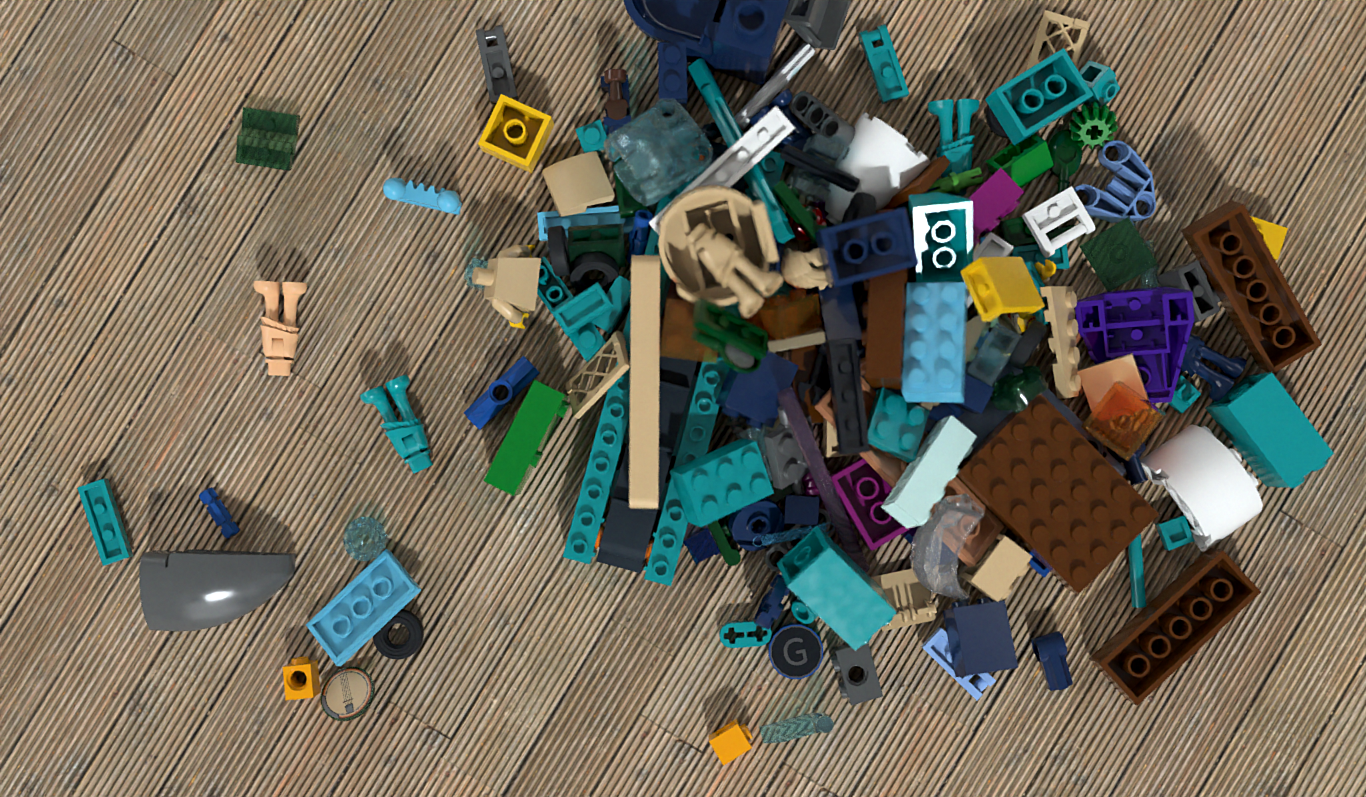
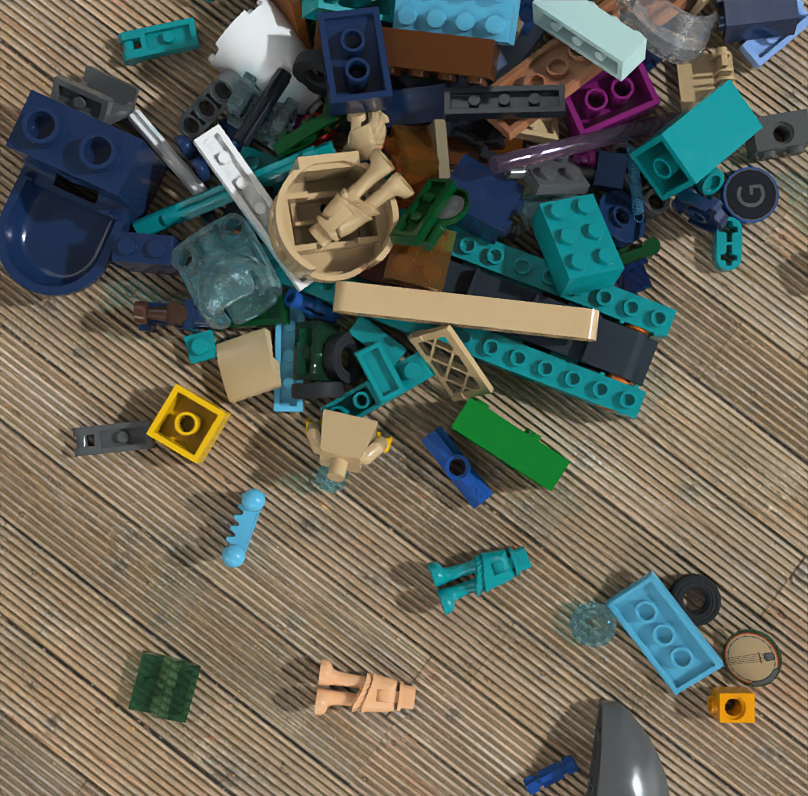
camera: 85 degrees left, 0 degrees up
(896, 425) = (536, 59): teal plate -> none

